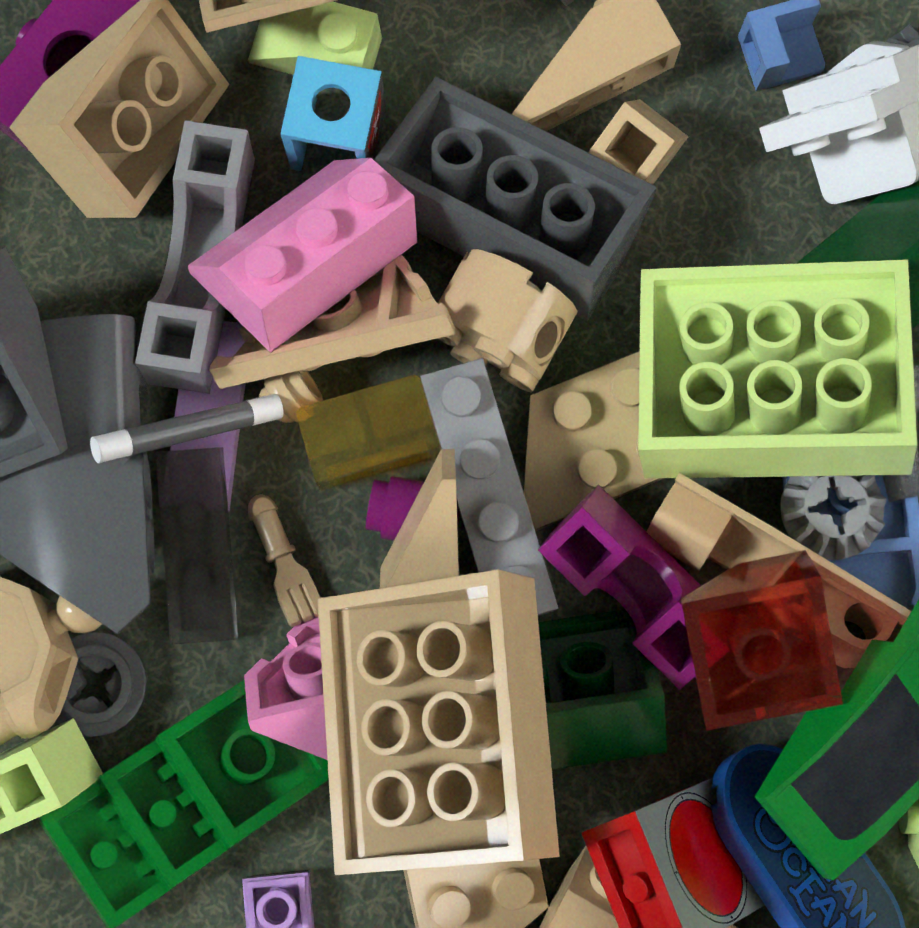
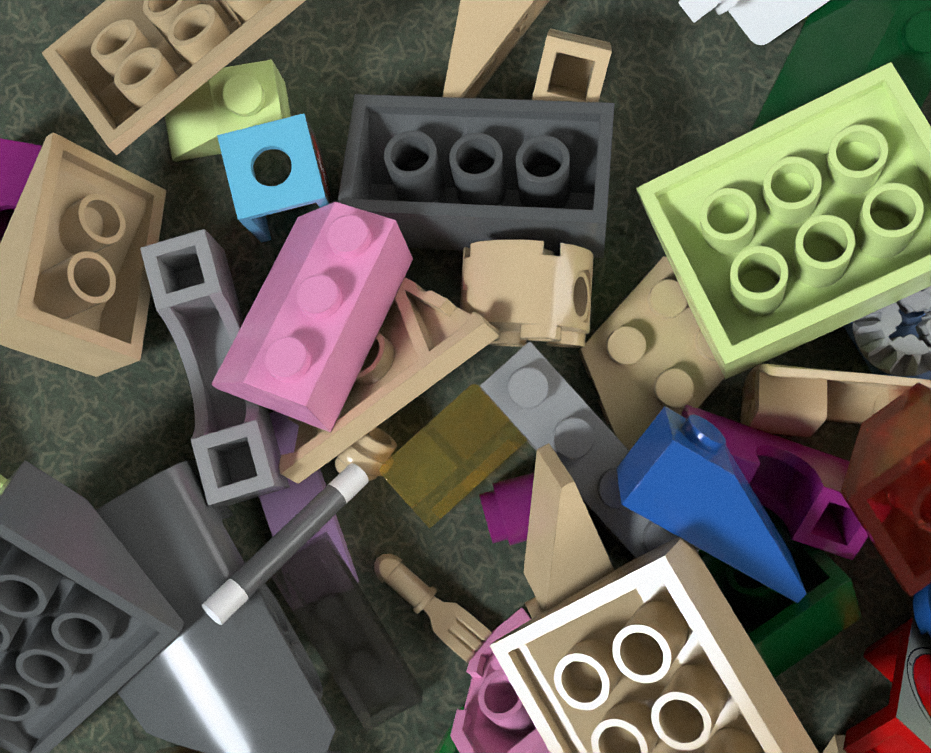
camera: 25 degrees left, 5 degrees up
(566, 554) = (694, 488): none -> blue slope

